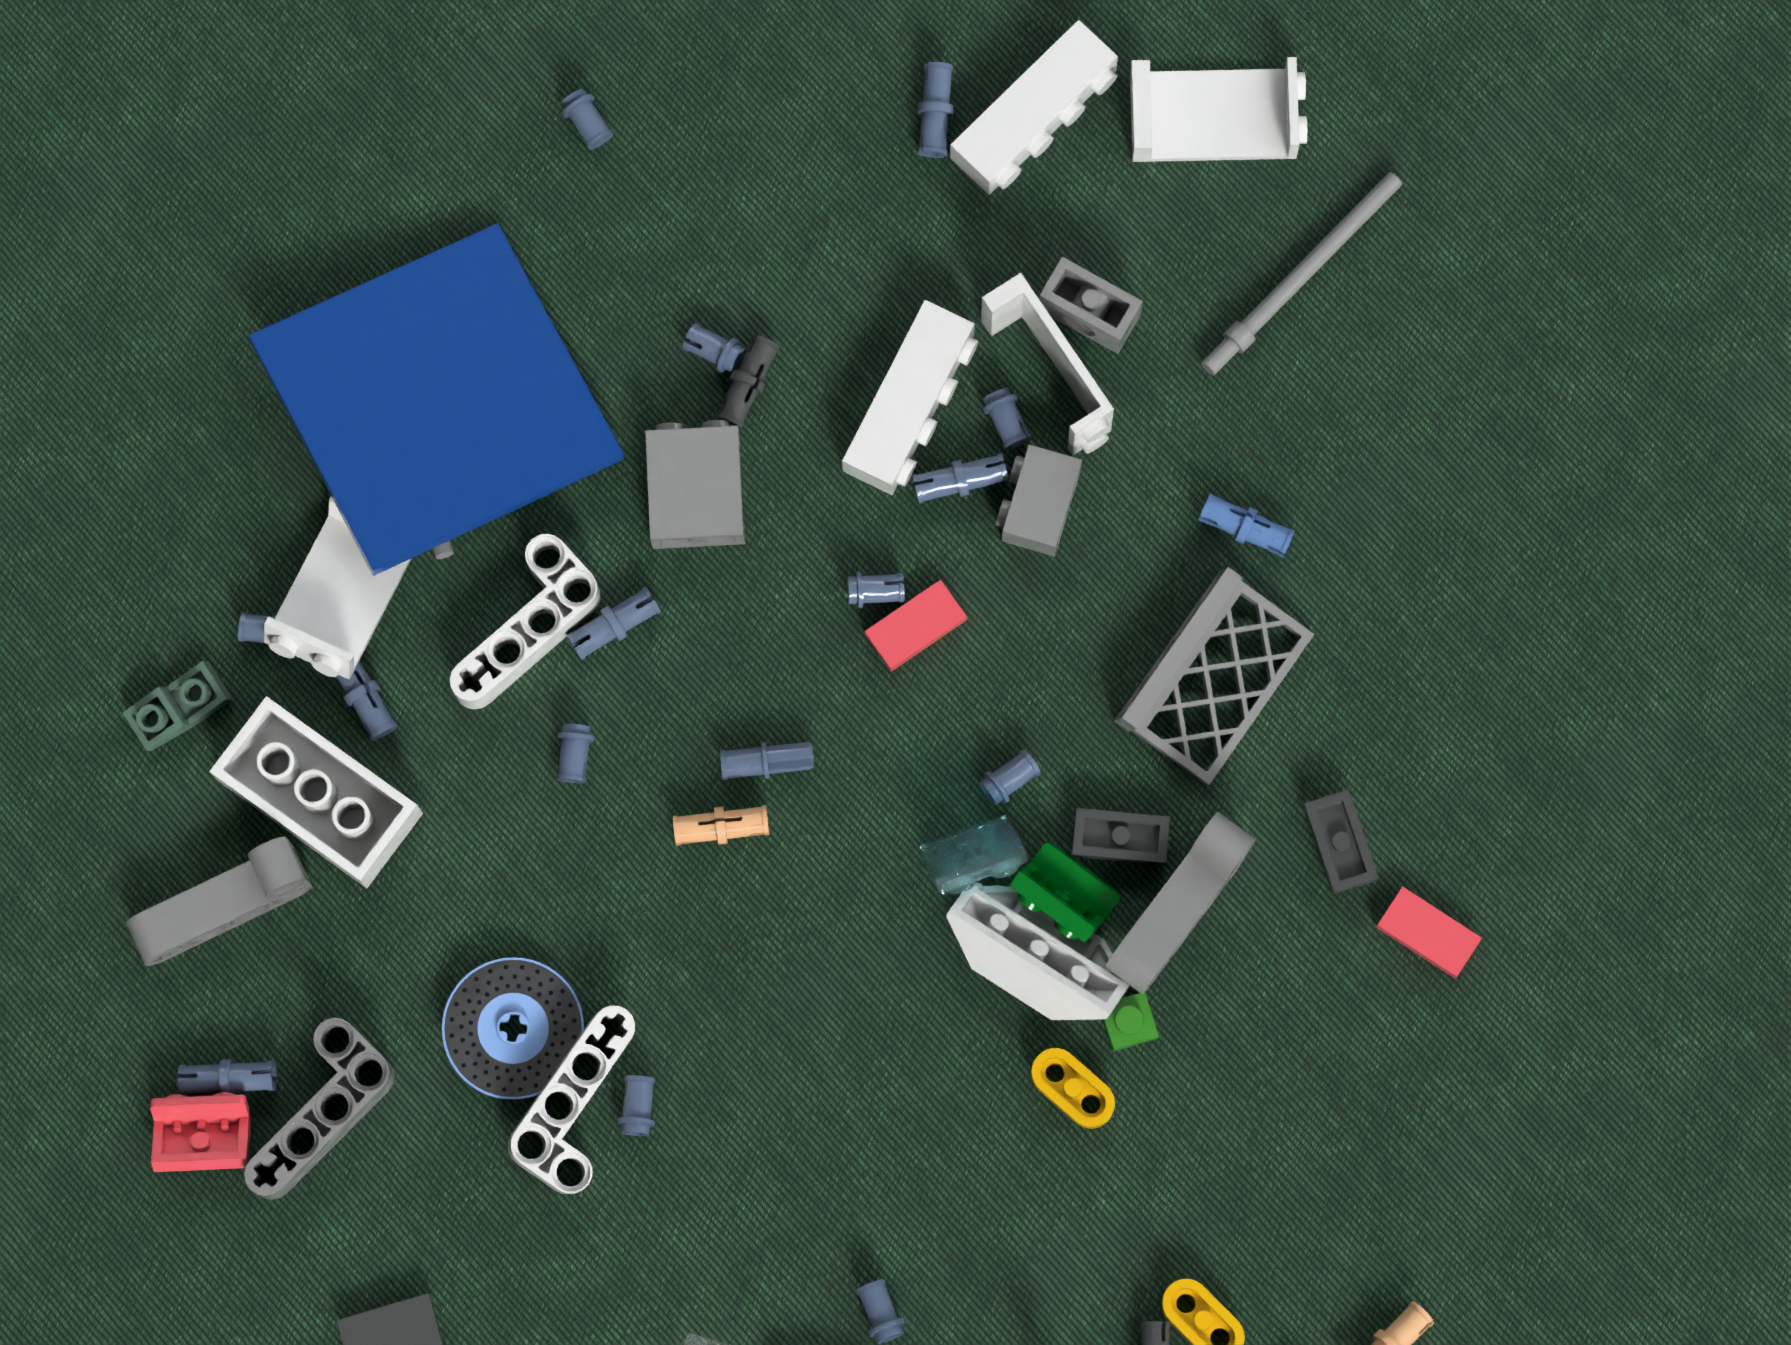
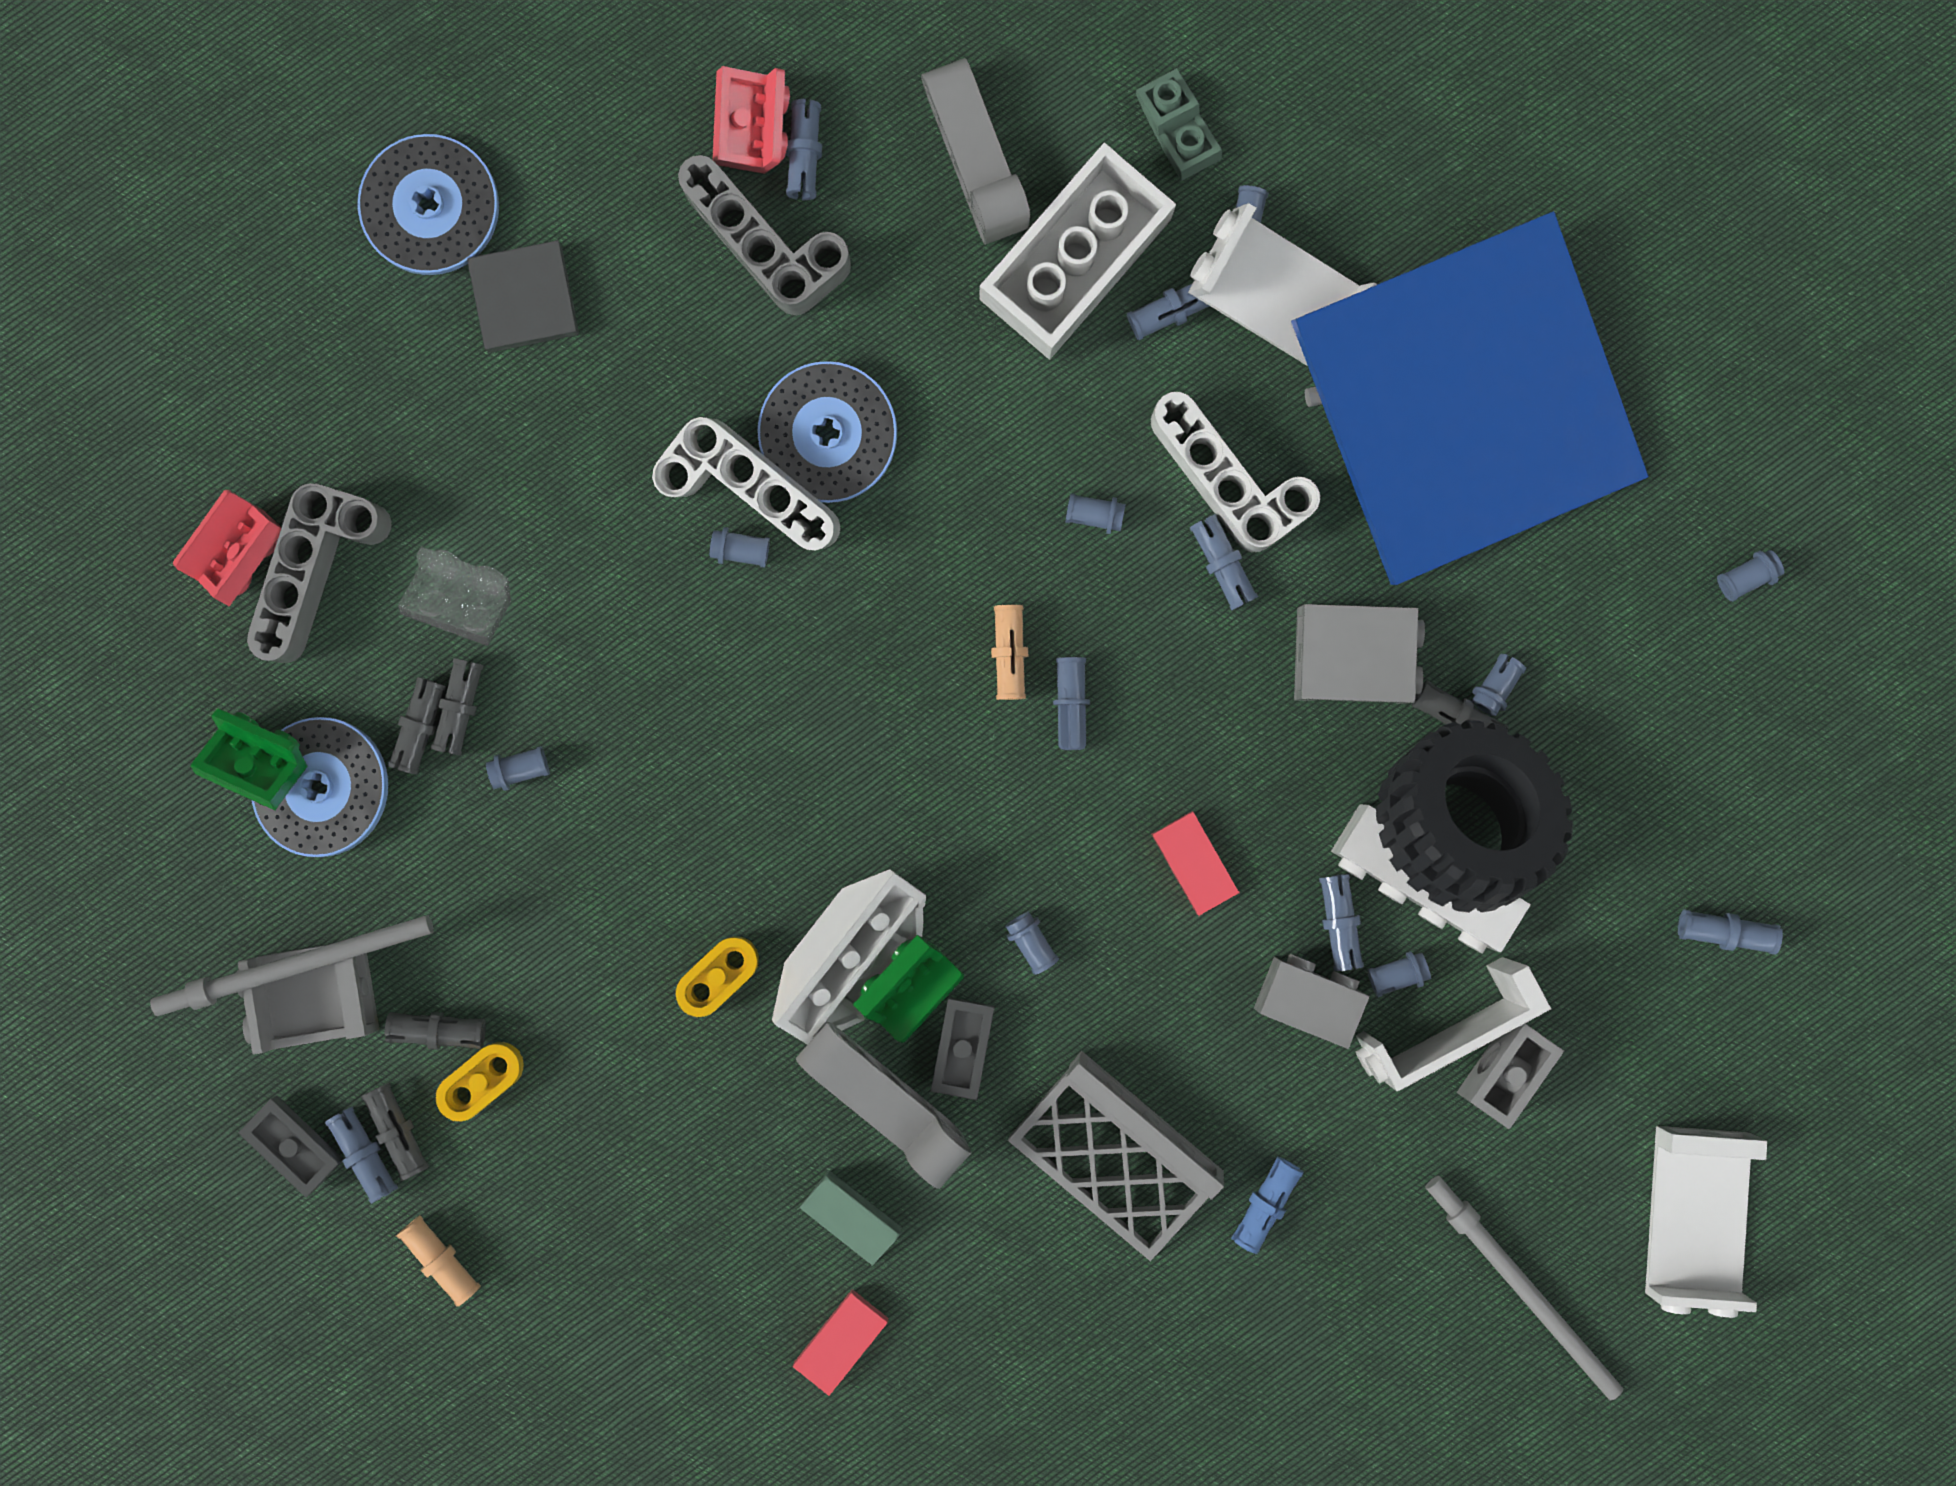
camera: 90 degrees right, 10 degrees up
(806, 329) = (1513, 784): none -> black tyre
(875, 588) = (1235, 826): sand blue pin -> none
(973, 855) = (953, 901): clear light blue tile -> none
(1034, 108) = (1723, 1034): white brick -> none
(1130, 1023) = (774, 1043): bright green plate -> none
(1304, 933) = (851, 1218): none -> sand green slope
(1340, 842) = (937, 1266): dark grey plate -> none

